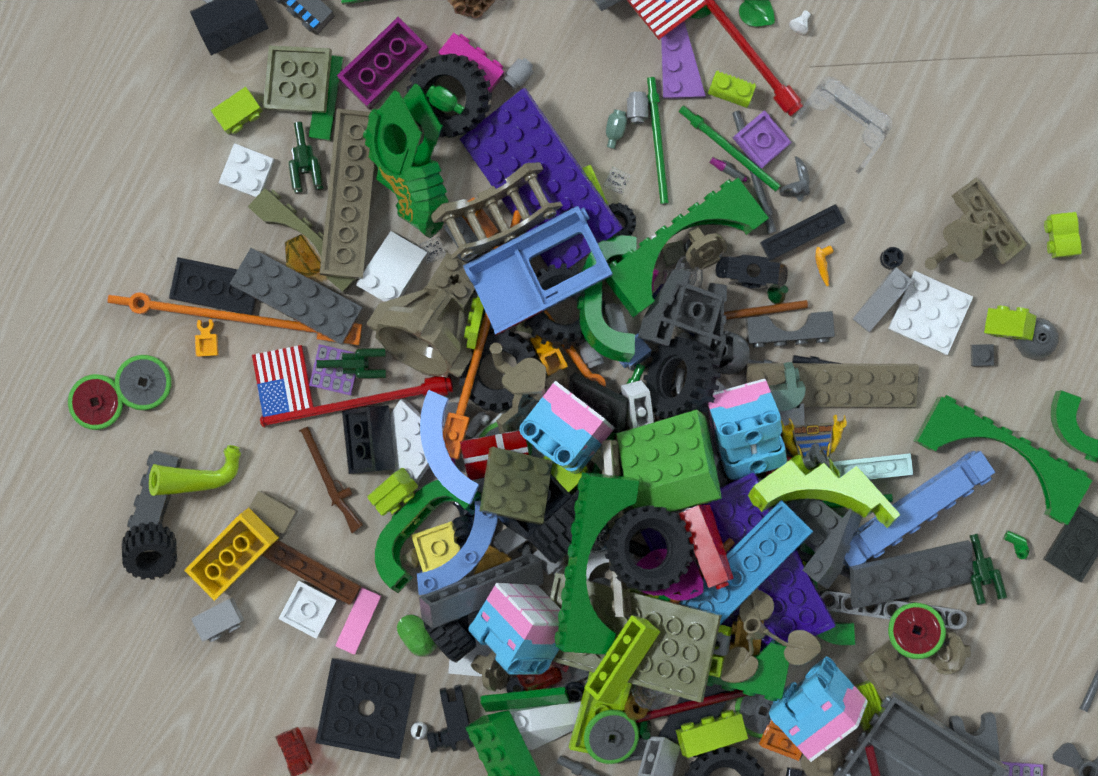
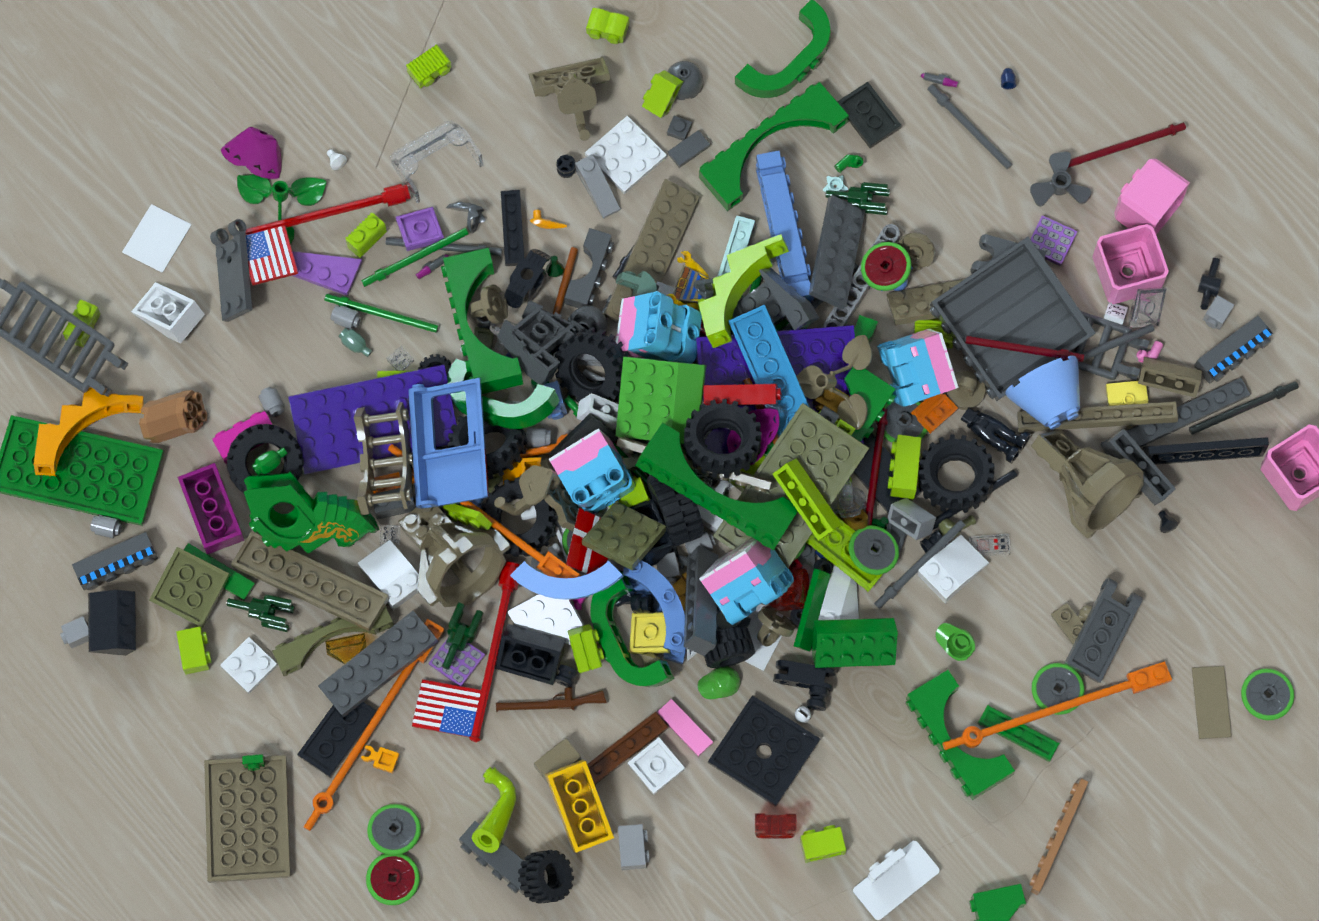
camera: 70 degrees left, 15 degrees down
(95, 237) = (247, 820): none -> dark tan plate
(146, 219) = (253, 762): none -> green plate
(360, 484) = (566, 676): none -> black wheel
(940, 72) = (429, 66): none -> lime brick
(963, 374) = (688, 149): none -> dark grey tile
(990, 534) = (835, 181): none -> light aqua plate

